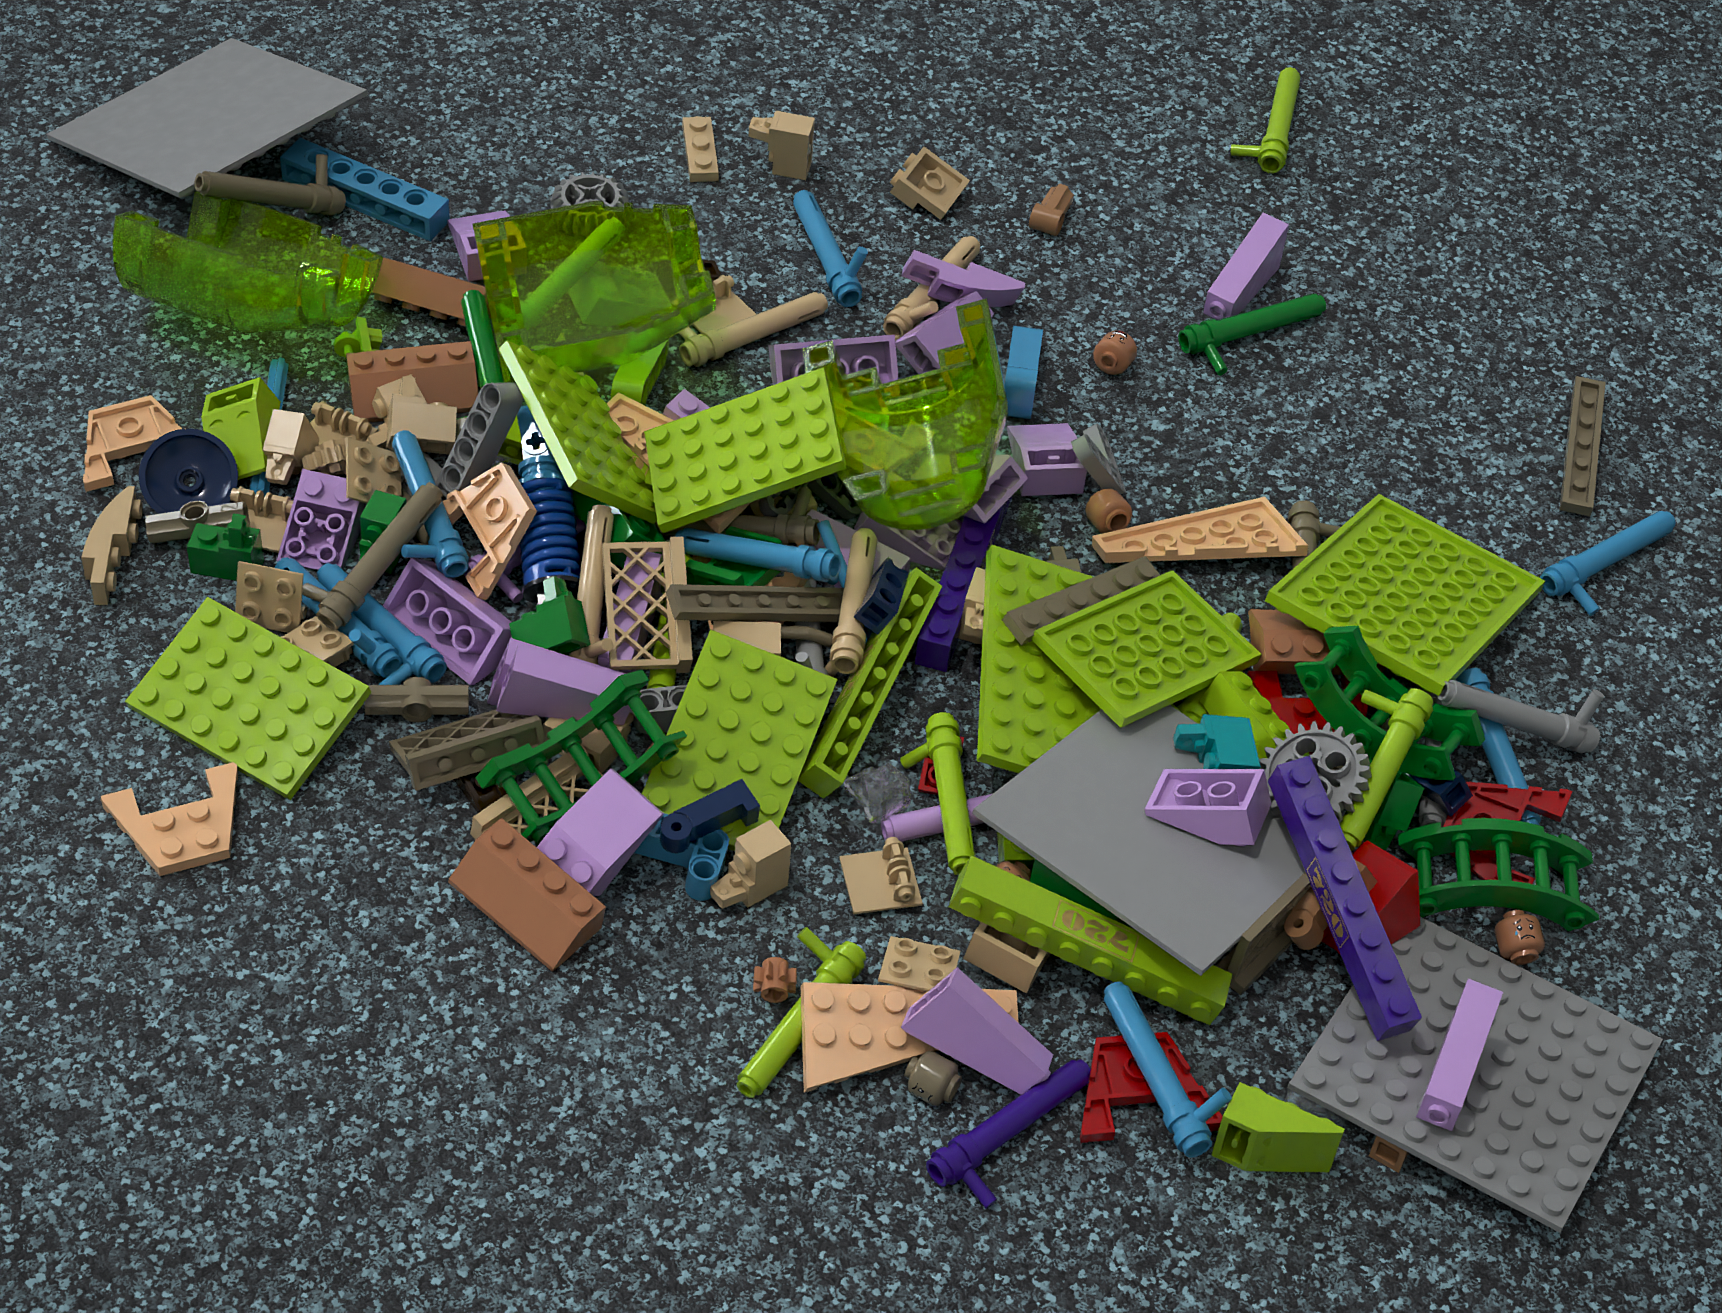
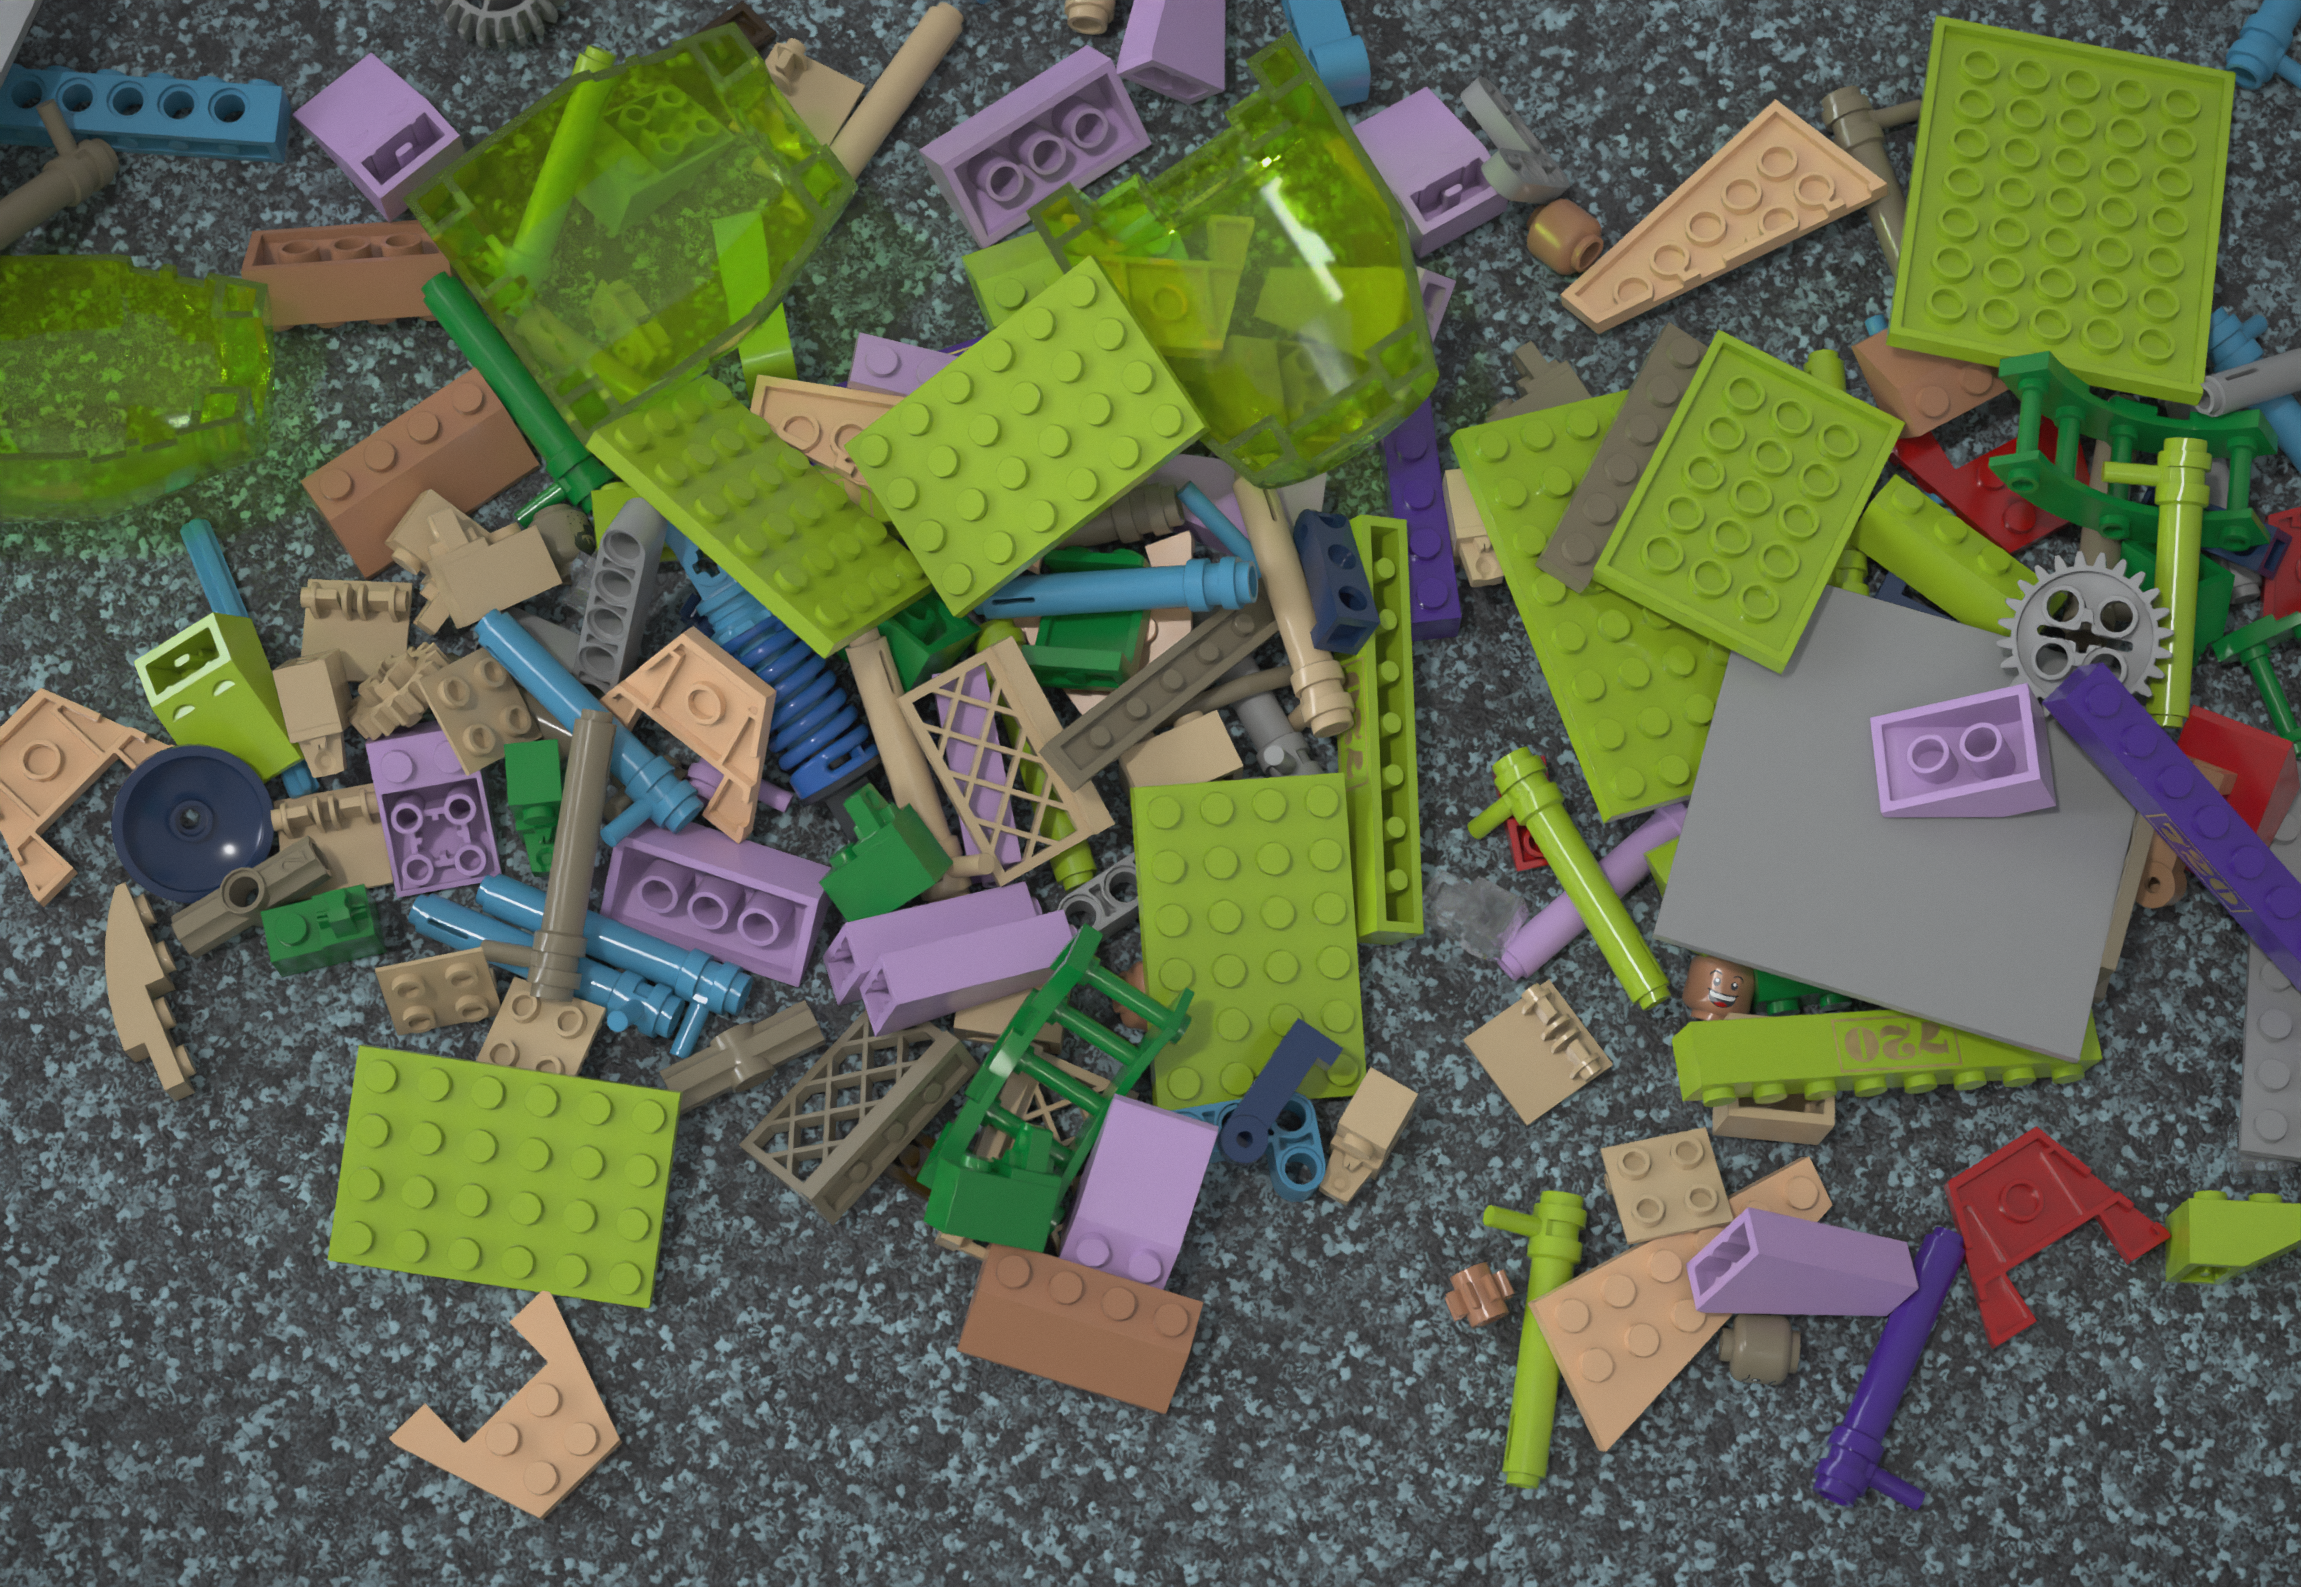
camera: 20 degrees left, 25 degrees up
(361, 340) = (294, 437): lime hips -> none
(512, 794) = (998, 1198): none -> green hinge
(1180, 1114) = (2117, 1262): dark azure cylinder -> none
(1220, 742) = (1942, 640): teal hinge -> none

